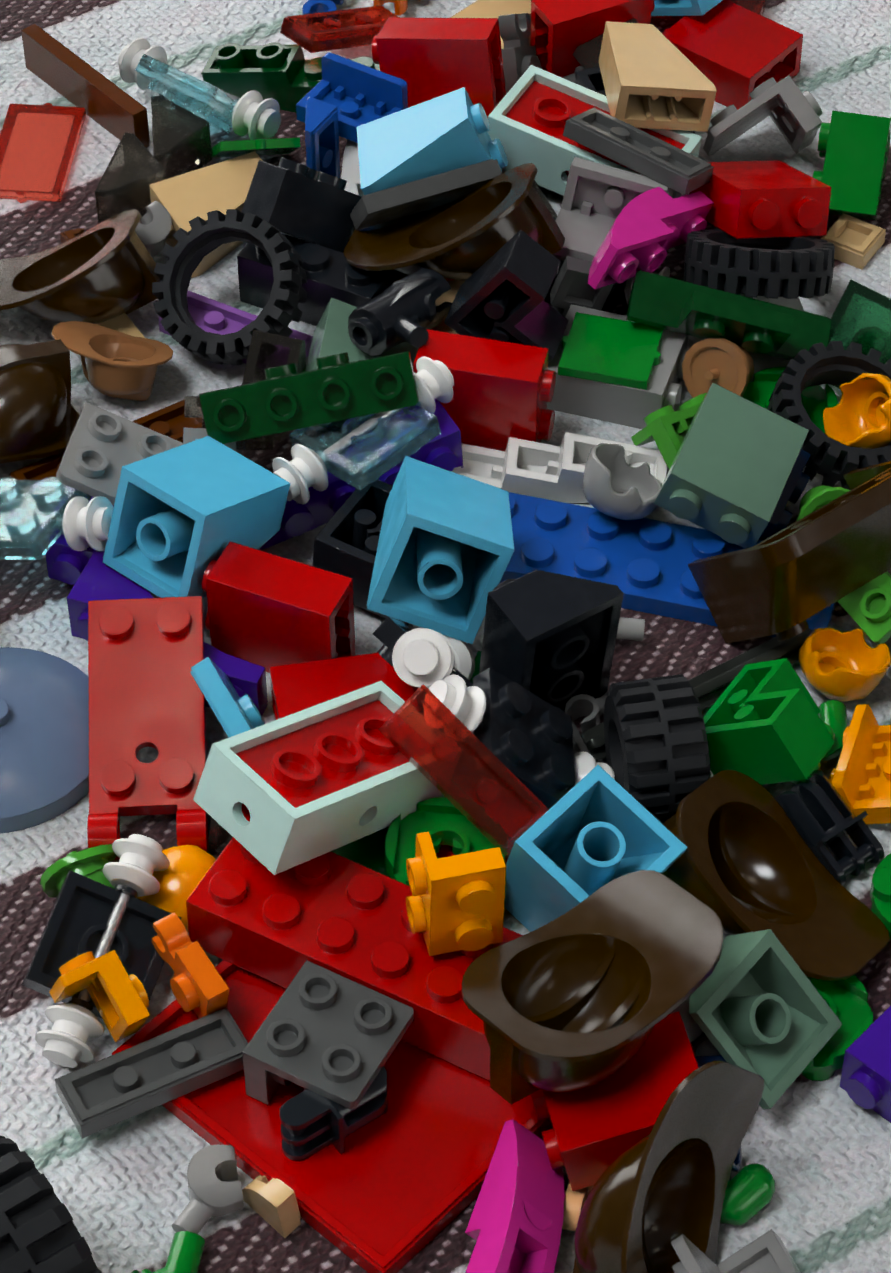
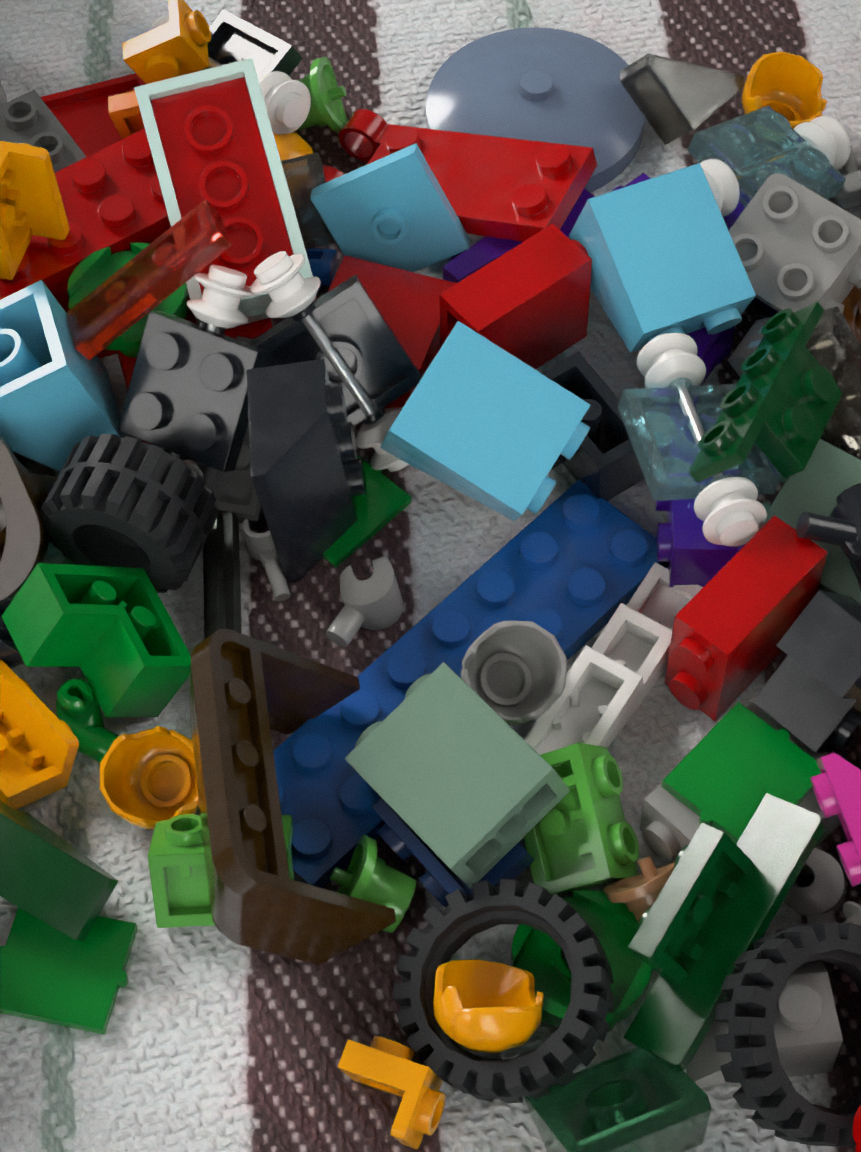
camera: 120 degrees right, 10 degrees up
(152, 1072) = (94, 75): dark grey tile -> none

